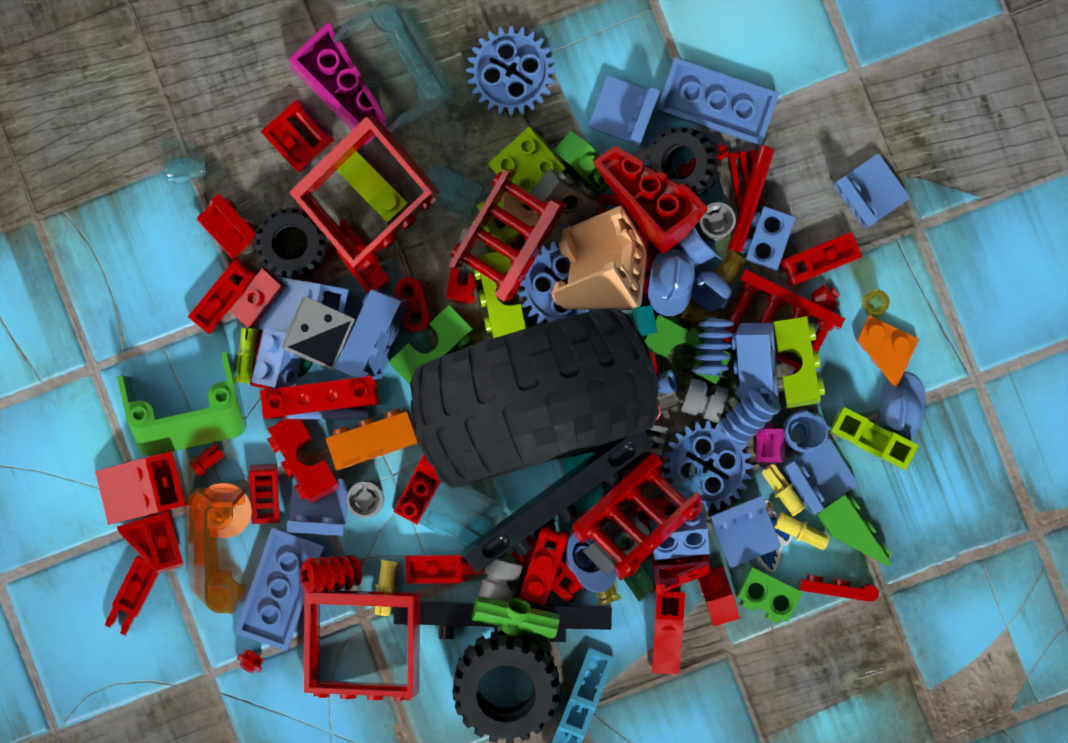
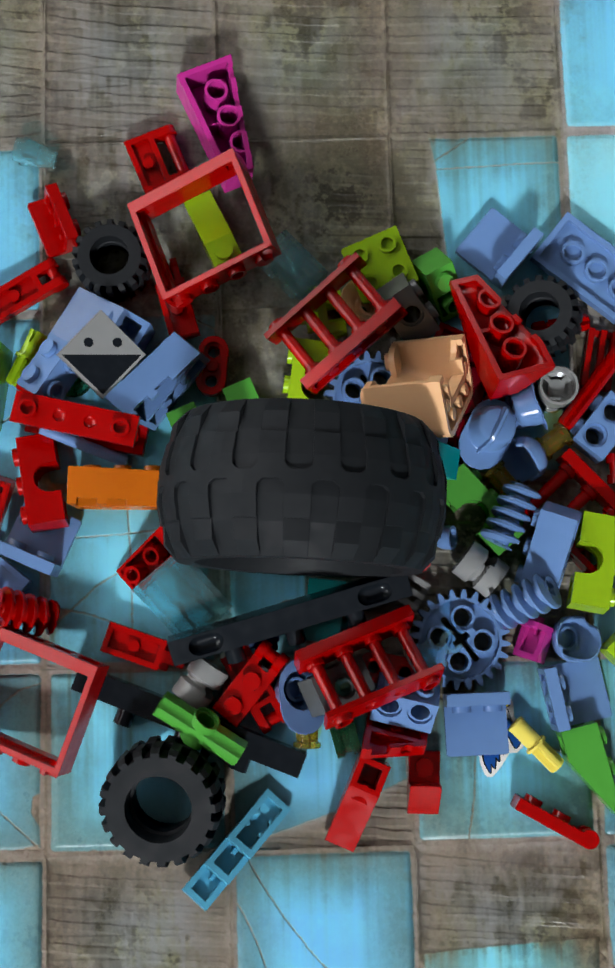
camera: 20 degrees right, 5 degrees down
(257, 298) = (57, 304): plate -> none
(365, 499) = (90, 547): light grey wheel -> none
(386, 583) = (80, 642): light yellow axle -> none
(432, 83) = (310, 149): clear light blue windscreen -> none
(460, 293) = (265, 366): red hinge -> none
(524, 49) = (416, 155): medium blue gear -> none
(771, 589) = (482, 796): bright green brick -> none
(783, 489) = (530, 693): light yellow axle -> none

